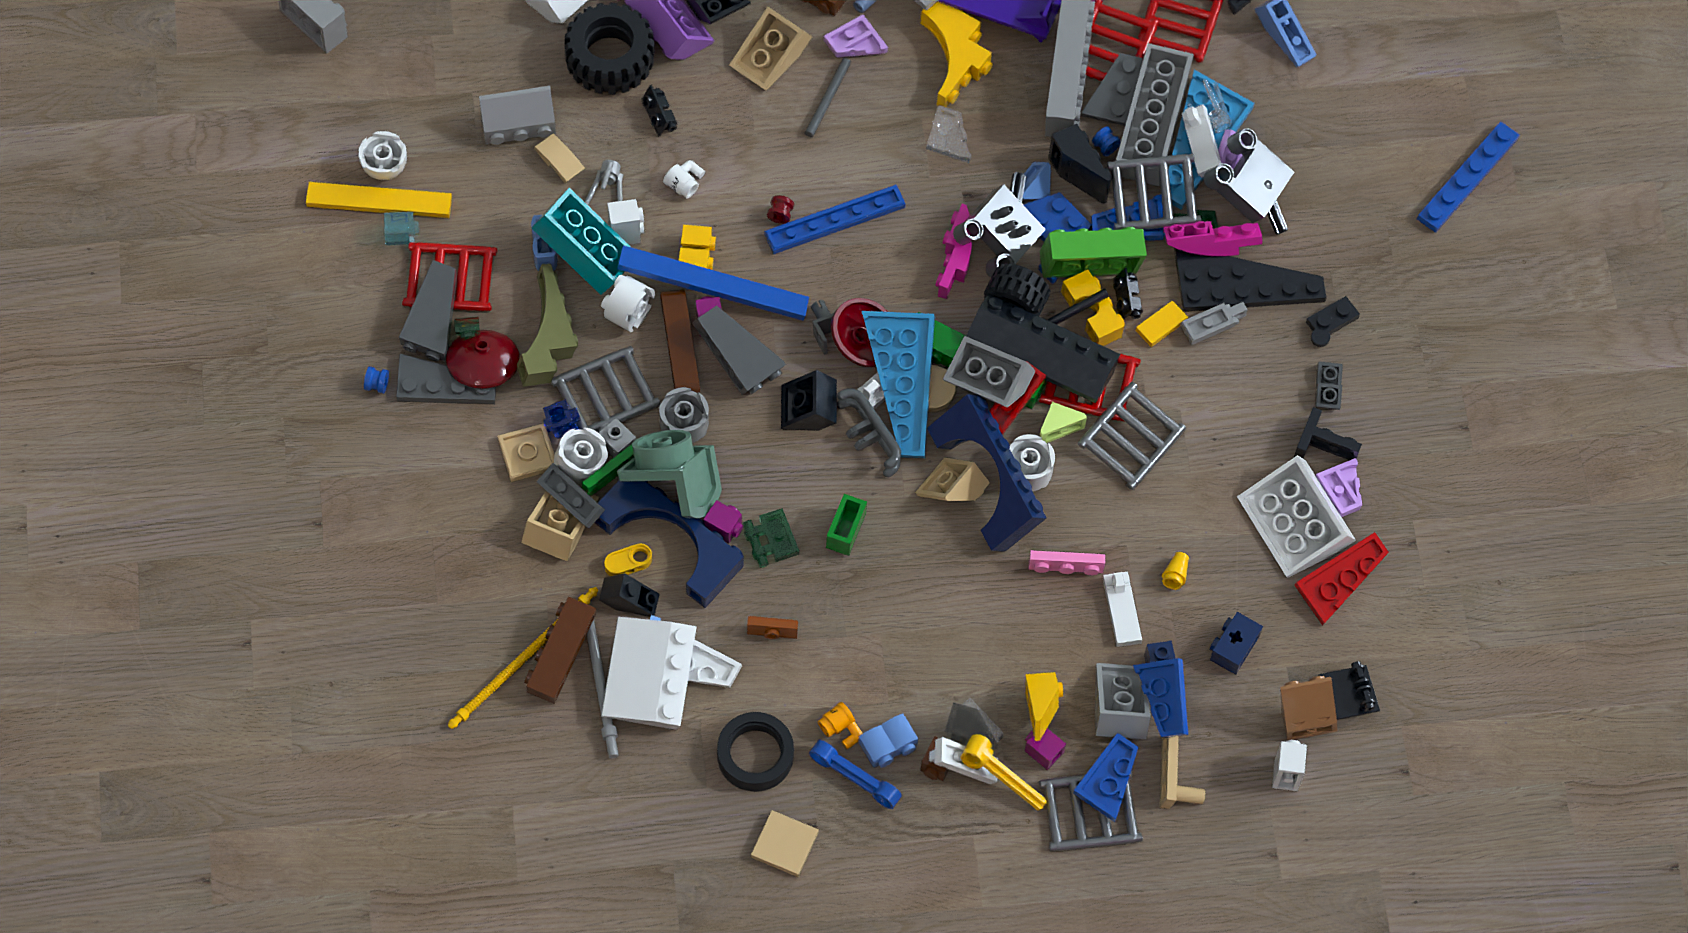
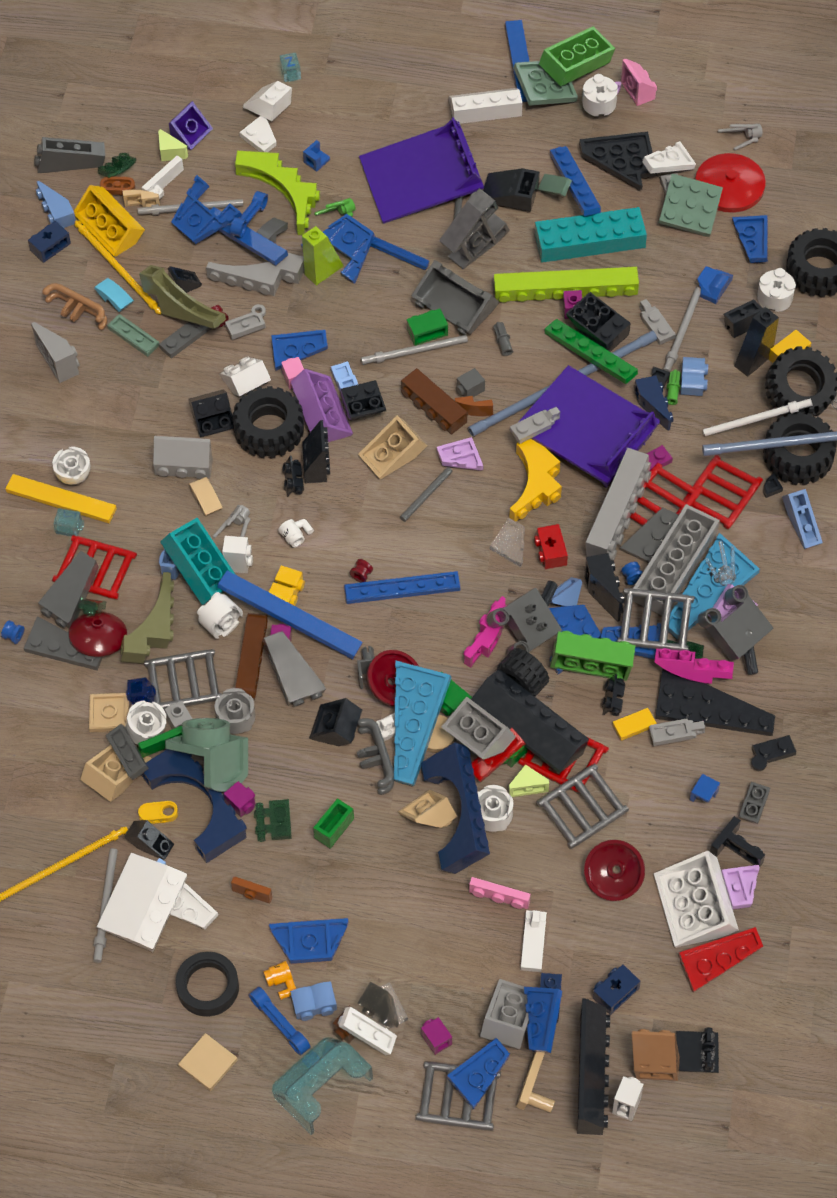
camera: 20 degrees right, 5 degrees down
(533, 51) = (211, 413): none -> black slope
(560, 650) = (82, 868): reddish brown brick -> none
(683, 76) = (316, 455): none -> black slope
(859, 670) = (309, 939): none -> blue wing
(915, 825) = (311, 1072): none -> clear light blue windscreen
(979, 755) = (377, 1027): yellow axle -> none
(1000, 130) = (551, 546): none -> red brick
(1042, 698) = (444, 998): yellow slope -> none
(1079, 307) = (569, 696): black bar -> none
(1106, 324) = (578, 685): yellow arch -> none
(1175, 573) = (584, 922): yellow cone -> none
(1201, 138) = (707, 585): white hinge -> none
(1204, 518) = (600, 872): none -> dark red dish
(1236, 741) = (592, 1068): none -> black slope
(1269, 382) = (705, 789): none -> blue panel

